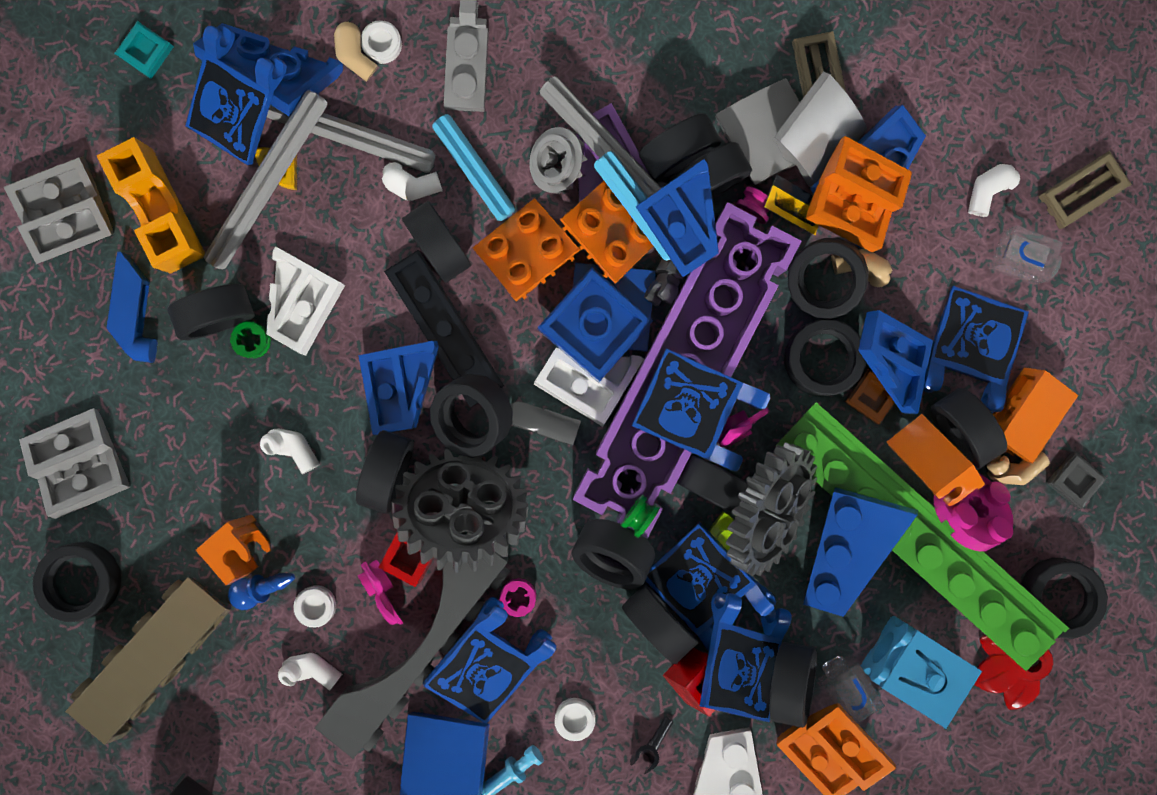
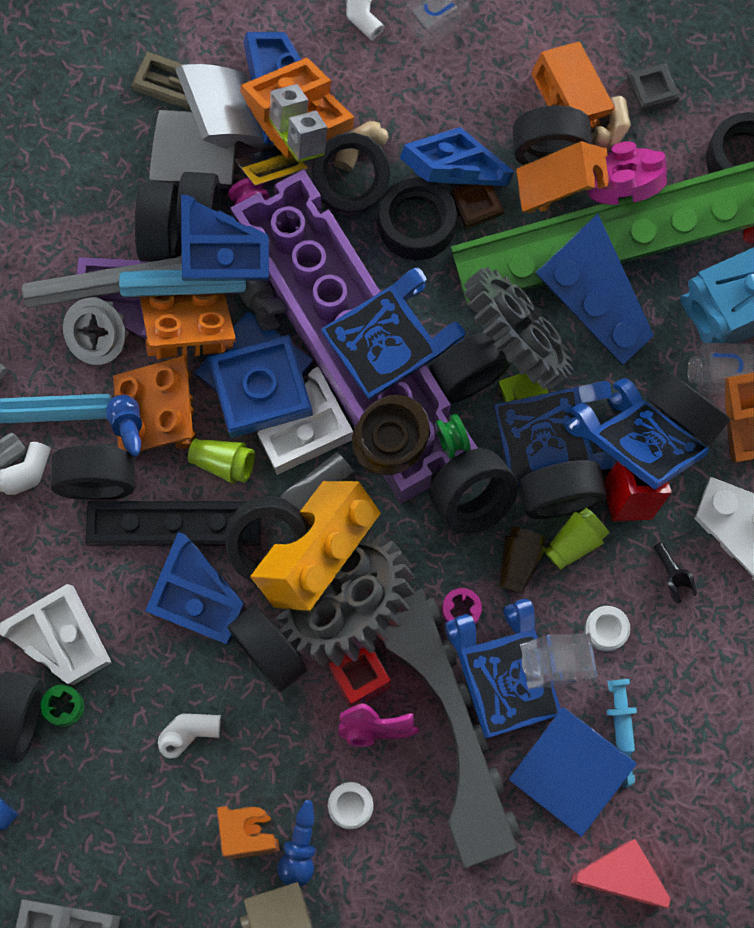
camera: 55 degrees left, 15 degrees down
(308, 666) = (404, 848): white arm -> none
(457, 466) = (301, 571): none -> light orange arch
(502, 231) = (125, 420): none -> blue bar
(519, 335) = (223, 458): none -> lime cone
(520, 702) = (558, 660): none -> clear brick
(587, 619) = (520, 558): none -> dark brown cone
(610, 465) = (391, 435): none -> dark brown piece
(629, 653) = (576, 538): none -> lime cone
(739, 427) = (429, 317): dark pink plate -> none
(831, 219) = (300, 131): none -> flat silver piece
(976, 340) = (483, 95): flag -> none

